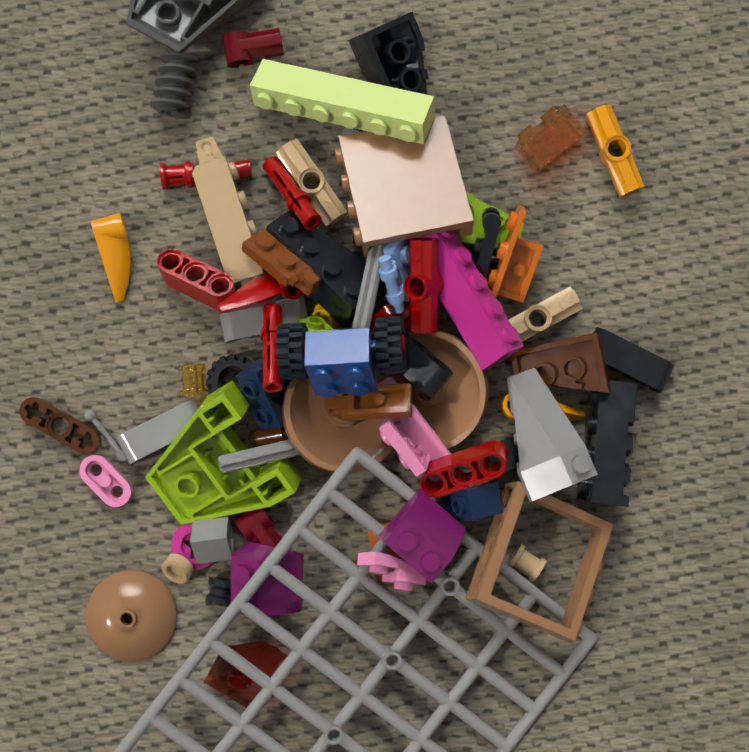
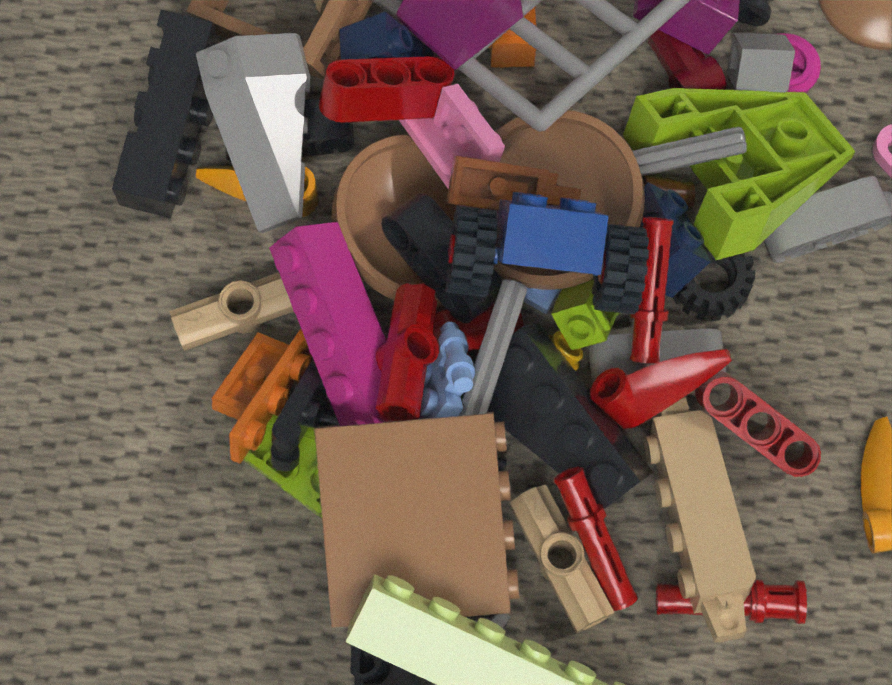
camera: 175 degrees left, 15 degrees down
(177, 568) = (813, 35): tan tile -> none
(197, 371) = (777, 273): clear yellow bush -> none
(280, 262) = (626, 418): dark orange hinge -> none
(550, 138) = (168, 579): clear orange brick -> none
(567, 363) = (206, 232): reddish brown wing -> none
(608, 132) = (73, 575): light orange piece -> none
(634, 361) = (117, 231): black beam -> none

